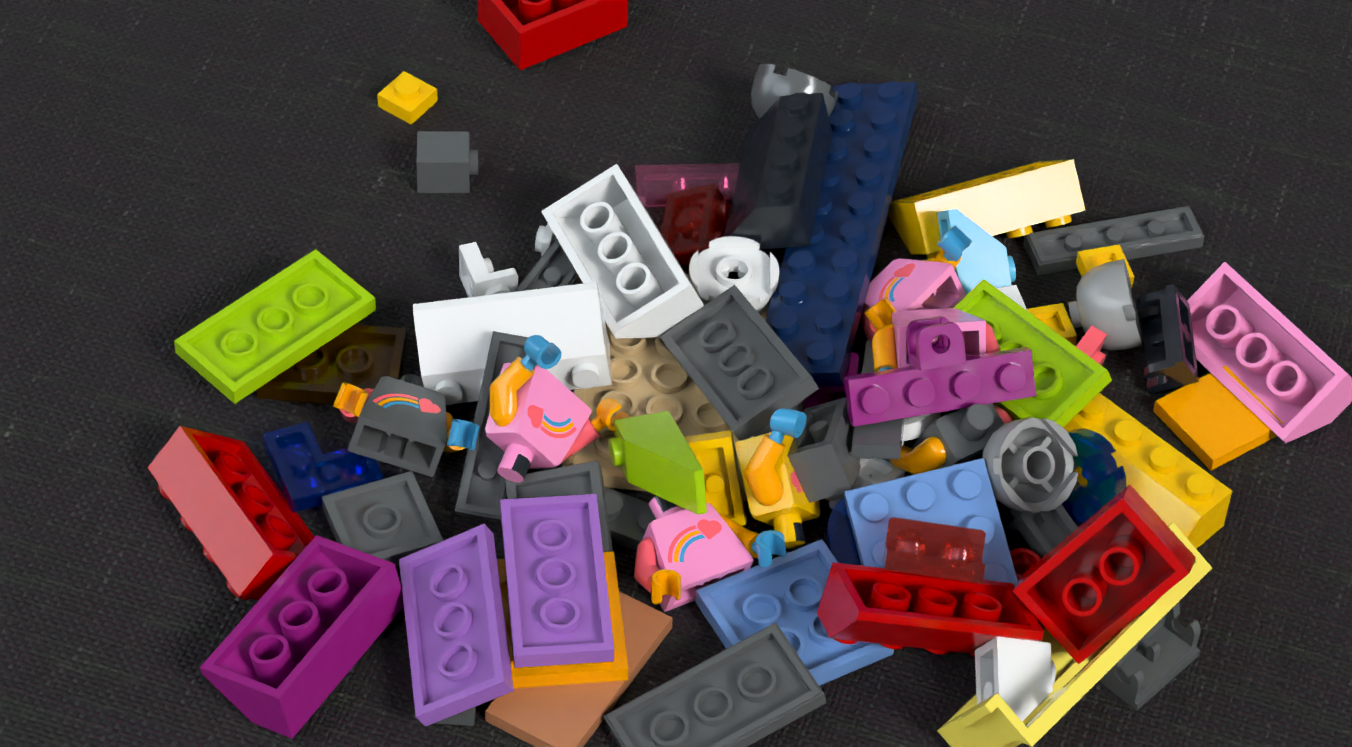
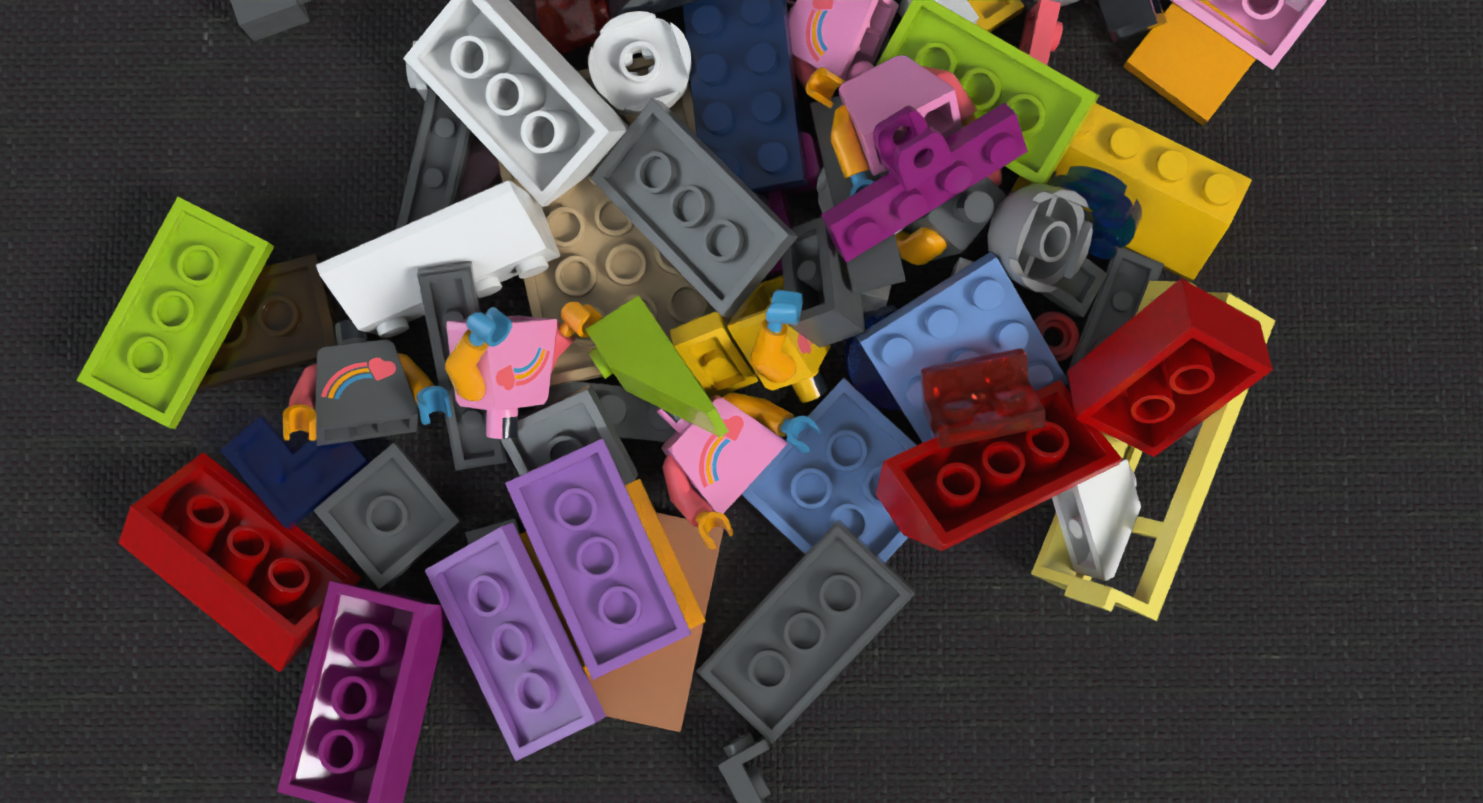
camera: 15 degrees left, 35 degrees up
(479, 275) = (365, 149): white bracket -> none

